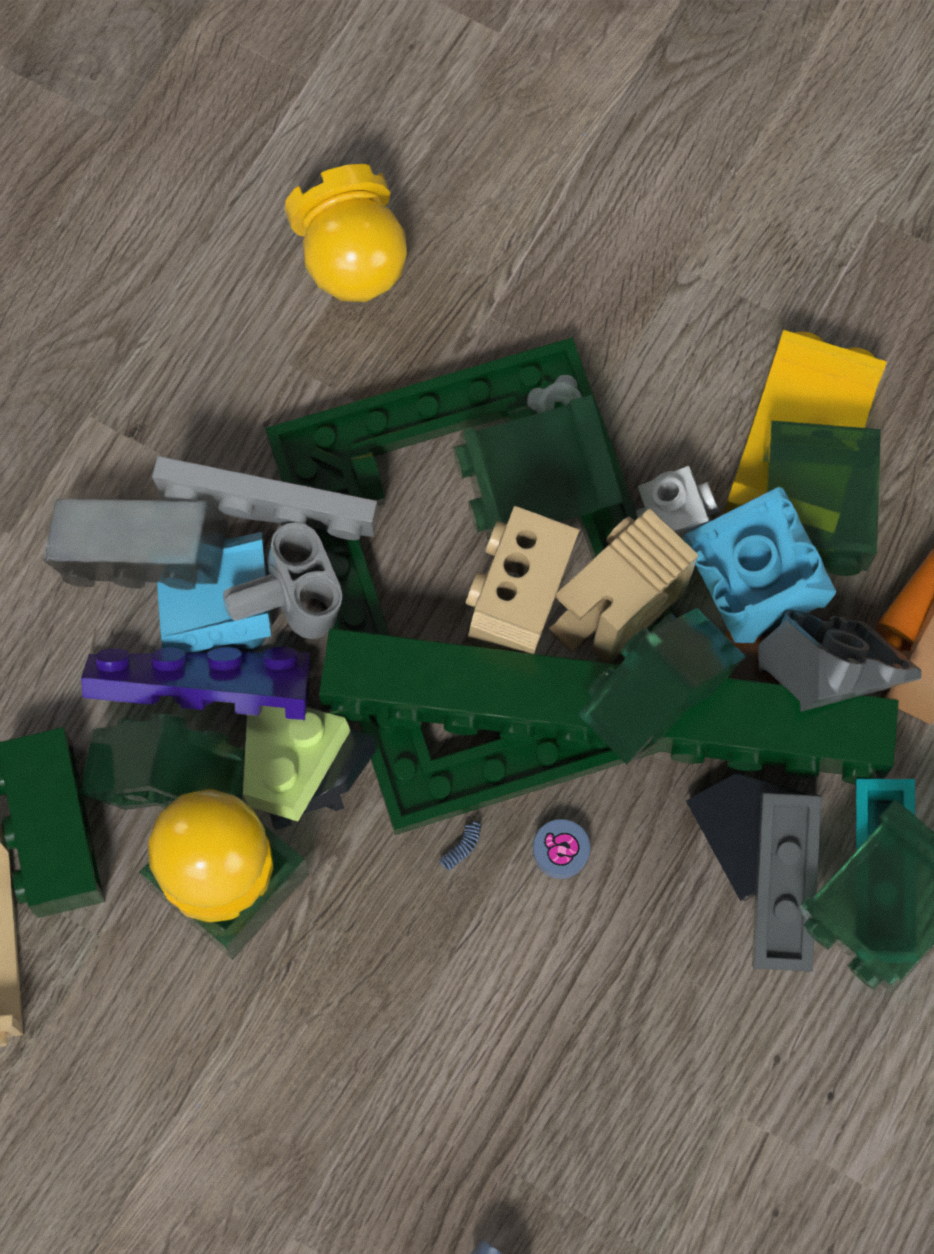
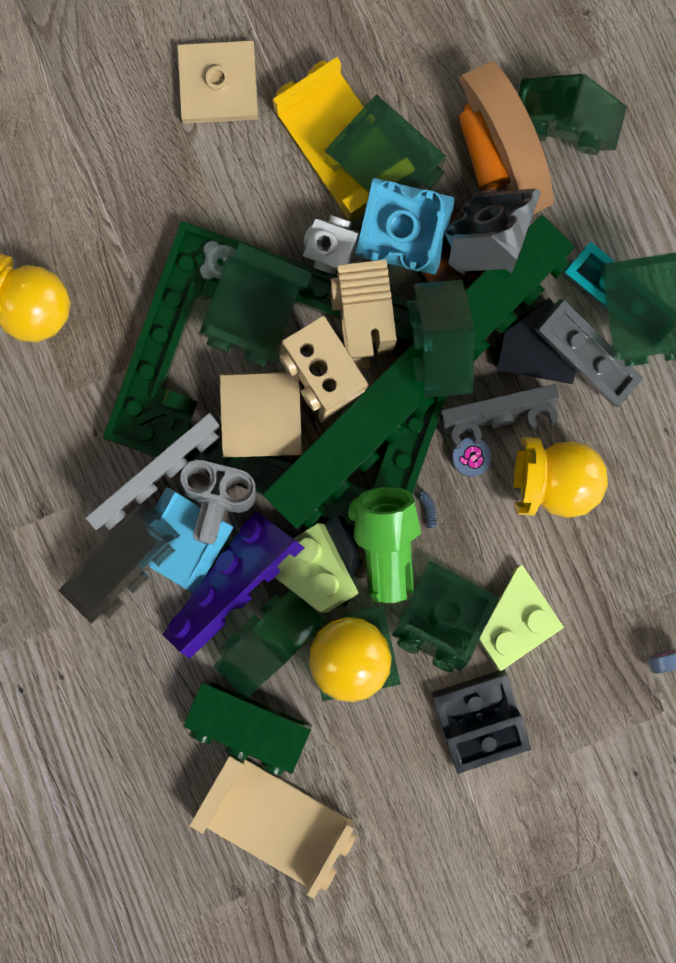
camera: 55 degrees left, 15 degrees up
(254, 1095) = (481, 721): none -> black slope
(345, 953) = (444, 618): none -> clear green plate
(396, 796) = (385, 527): none -> bright green piece
(407, 1048) = (518, 621): none -> yellowish green wing
(419, 567) = (260, 414): none -> tan slope
(616, 963) = (563, 478): none -> yellow tile
(638, 838) = (500, 413): none -> dark grey plate
(757, 270) = (218, 82): none -> tan plate

